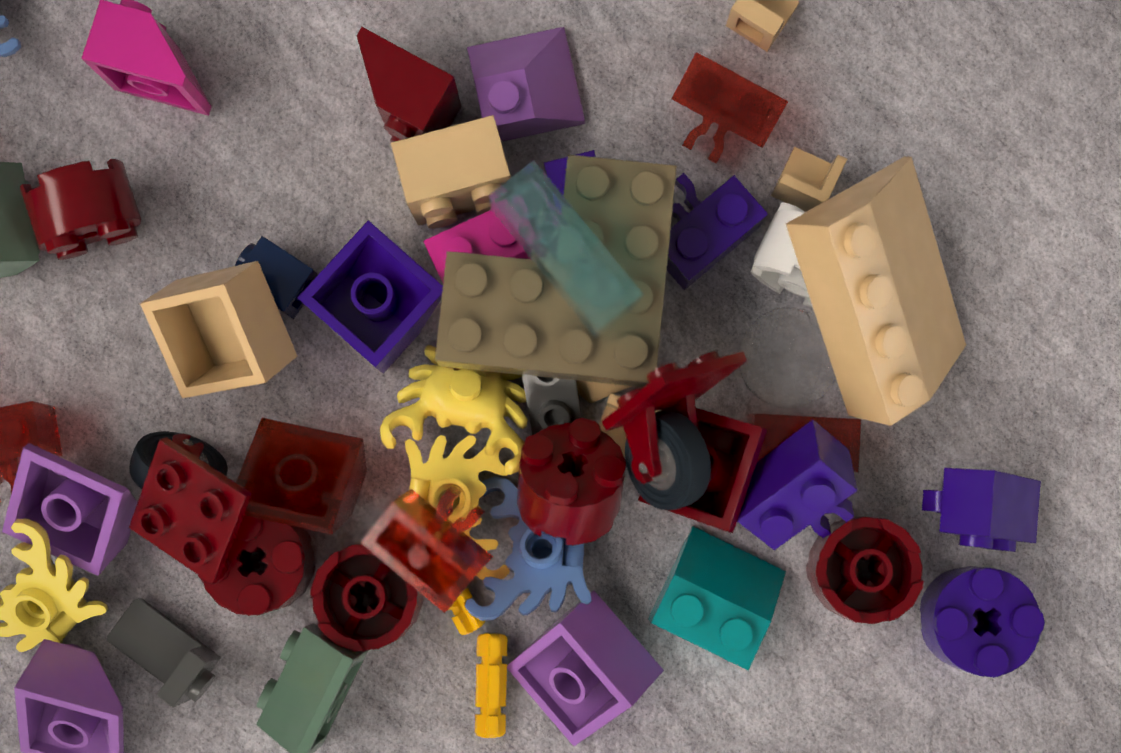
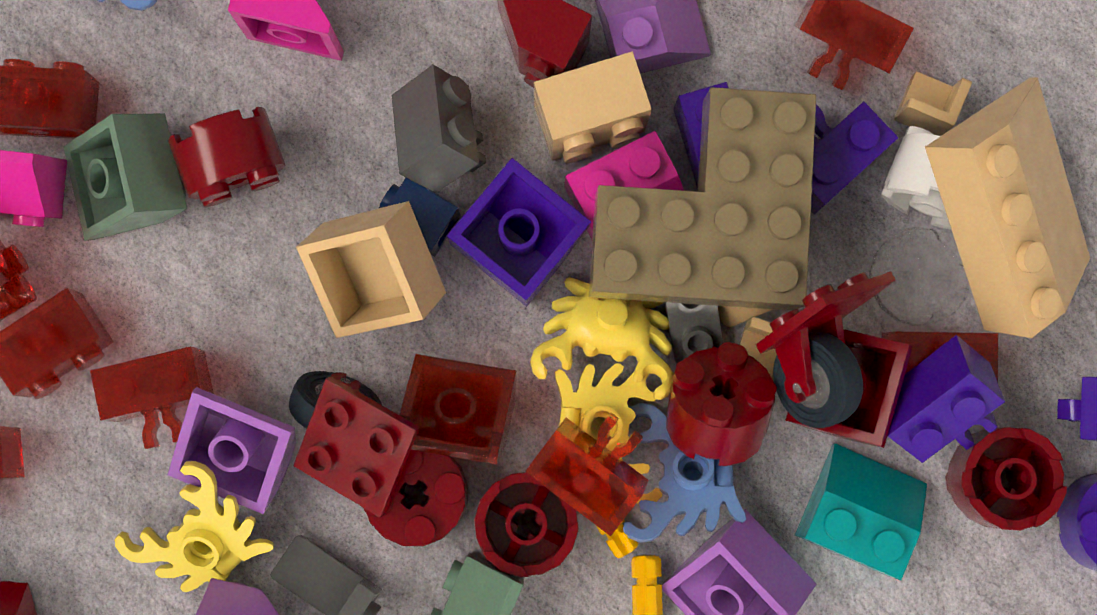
camera: 10 degrees left, 0 degrees up
(294, 189) = (435, 129): none -> dark grey brick
(565, 249) = (718, 179): clear light blue brick -> none

